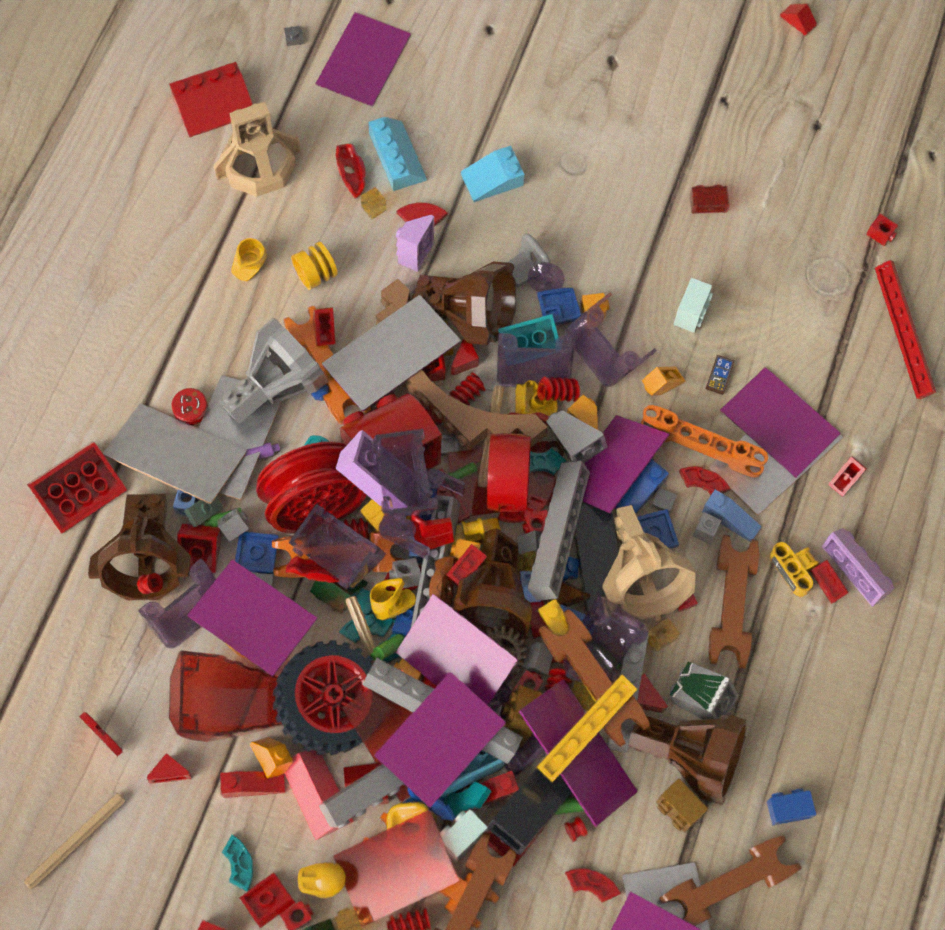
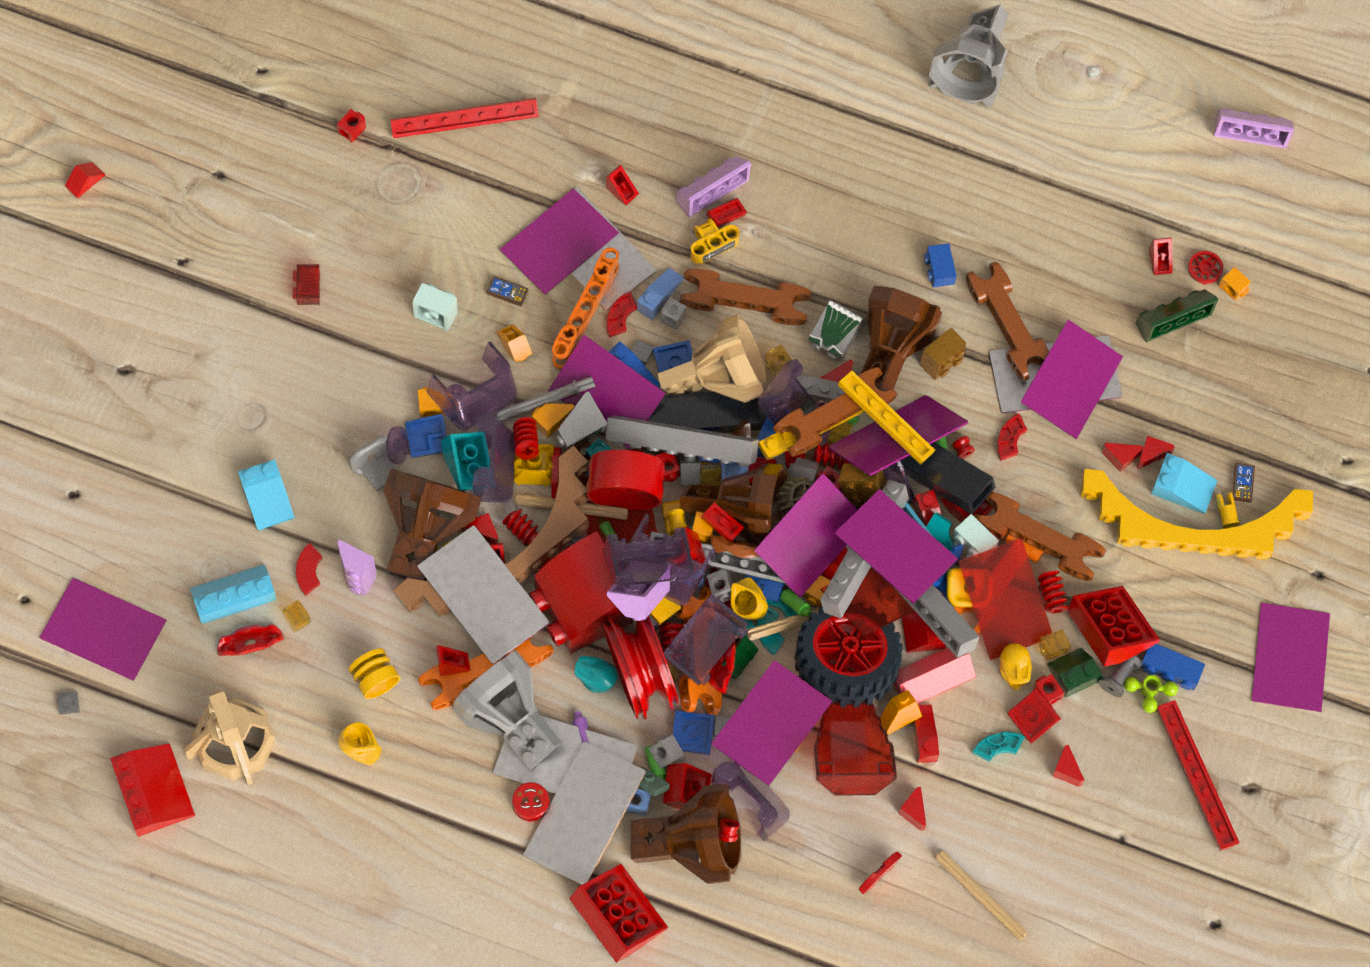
camera: 90 degrees left, 0 degrees up
(614, 431) = (549, 397): none -> light grey axle

